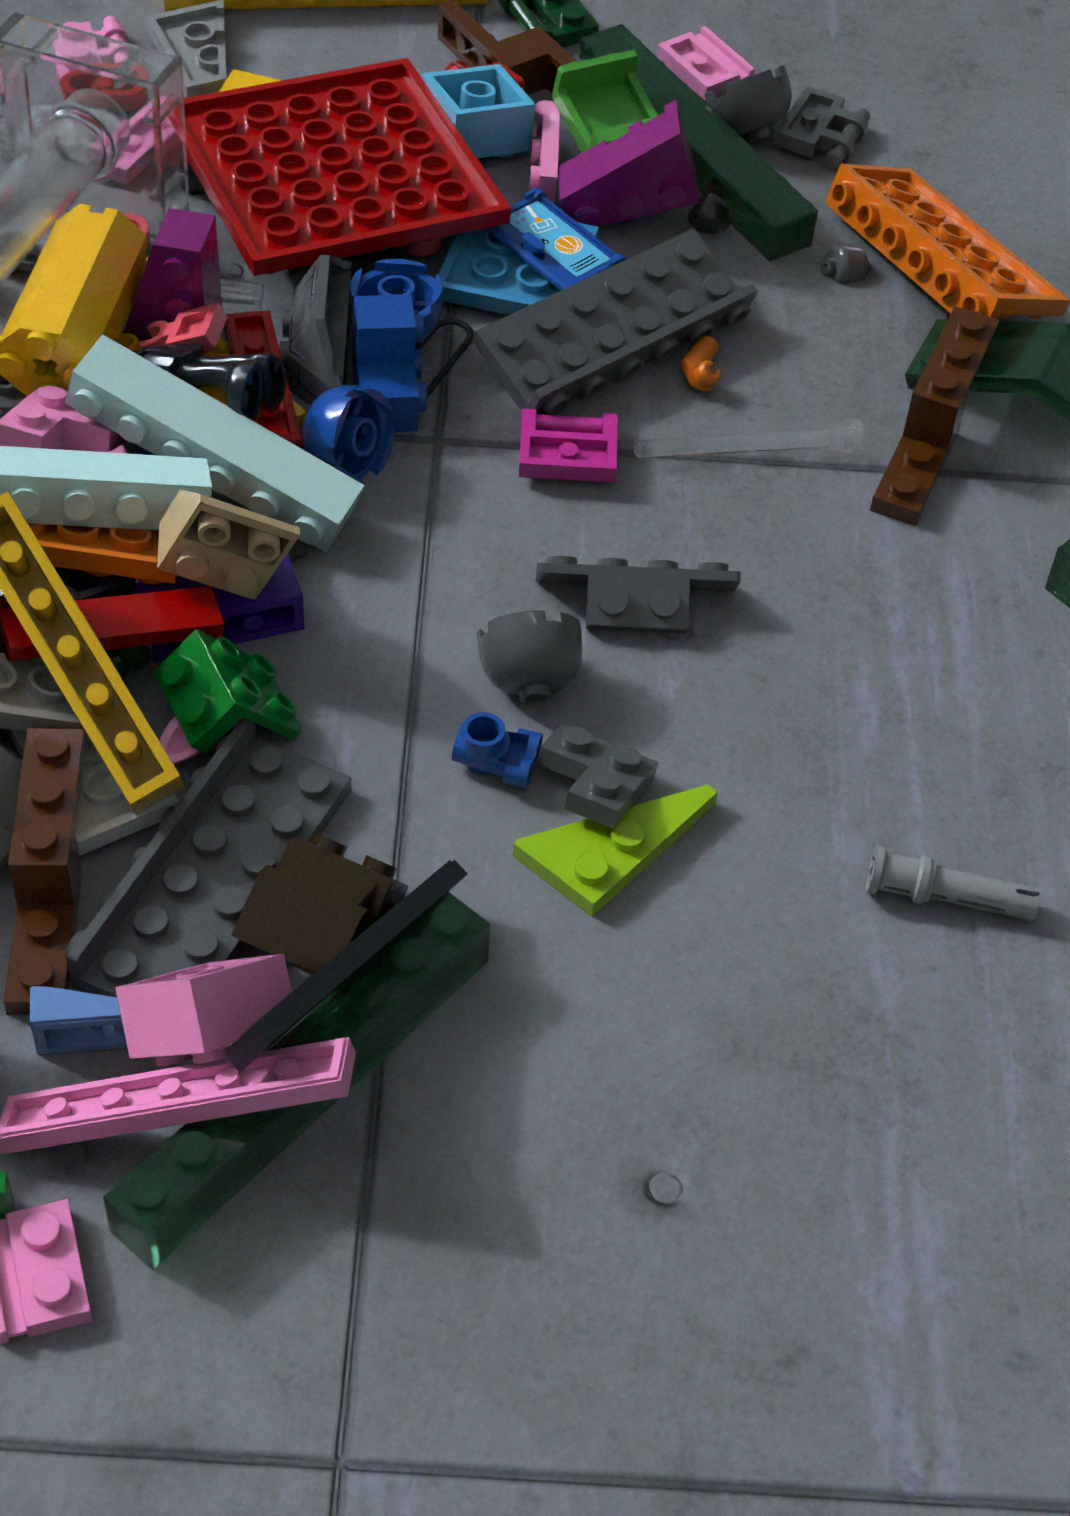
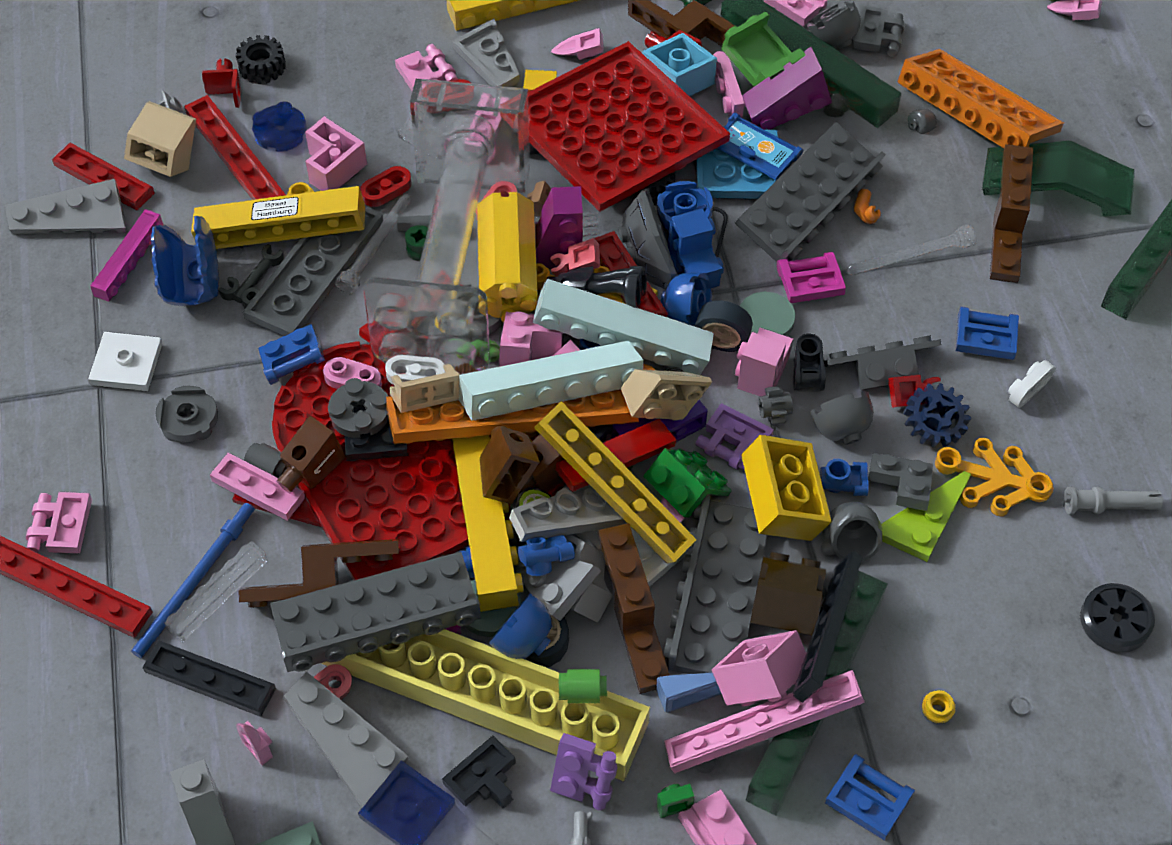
camera: 10 degrees left, 5 degrees up
(312, 1287) = (863, 803): none -> blue plate
(342, 57) = (582, 45): none -> bright pink plate
(349, 641) = (734, 428): none -> medium lavender plate
(380, 739) = (785, 488): none -> yellow brick
(394, 477) = (728, 323): none -> black wheel
(425, 615) = (775, 405): none -> dark grey gear
(430, 545) = (762, 361): none -> bright pink brick
(471, 488) = (770, 312): none -> sand green tile
(477, 830) = (852, 529): none -> dark grey piece
(507, 566) = (809, 367): none -> black piece
(512, 1137) = (938, 698): none -> yellow plate
(660, 643) = (905, 386): none -> red plate
(683, 707) = (935, 419): none -> dark blue gear
(762, 807) = (997, 476): none -> light orange plant
(829, 586) = (987, 339): none -> blue plate
(876, 674) = (1036, 379): none -> white plate
(902, 1107) = (1136, 619): none -> black wheel

